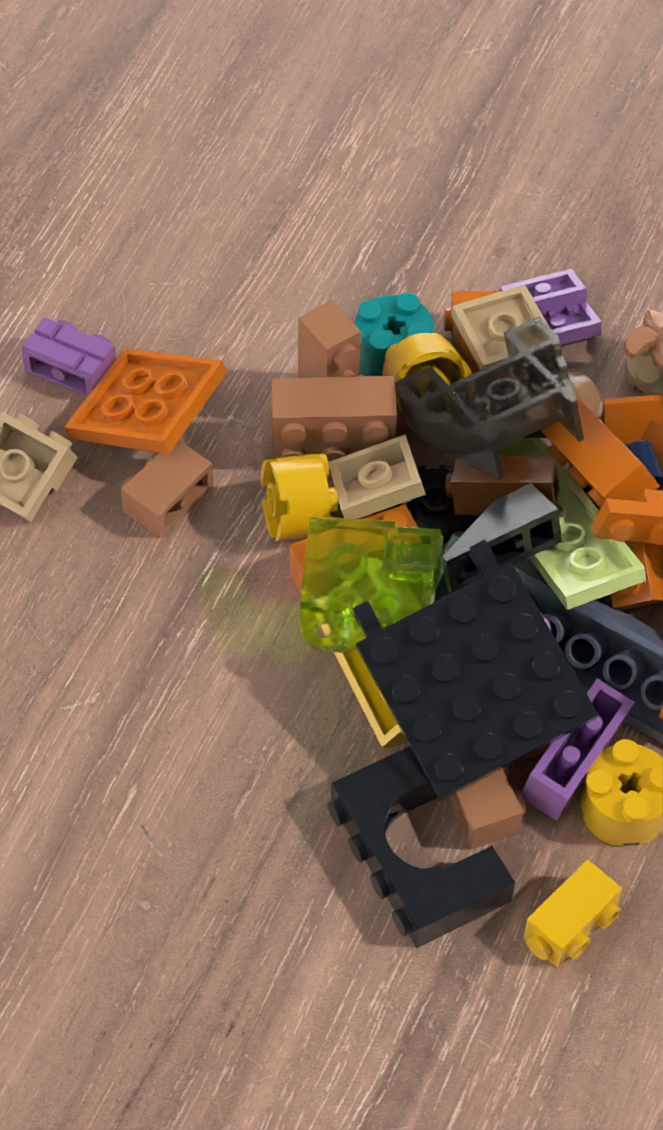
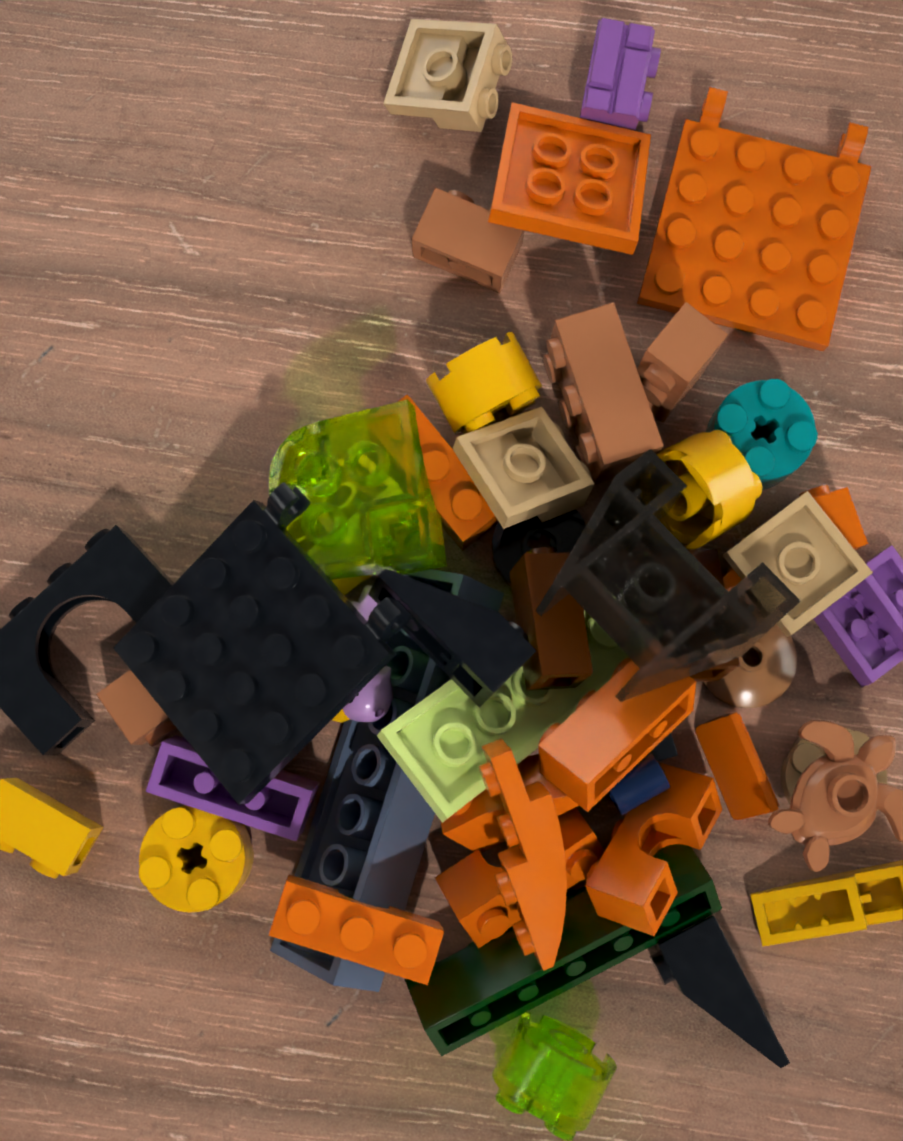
camera: 75 degrees right, 25 degrees up
(223, 304) = (756, 230): none -> orange plate

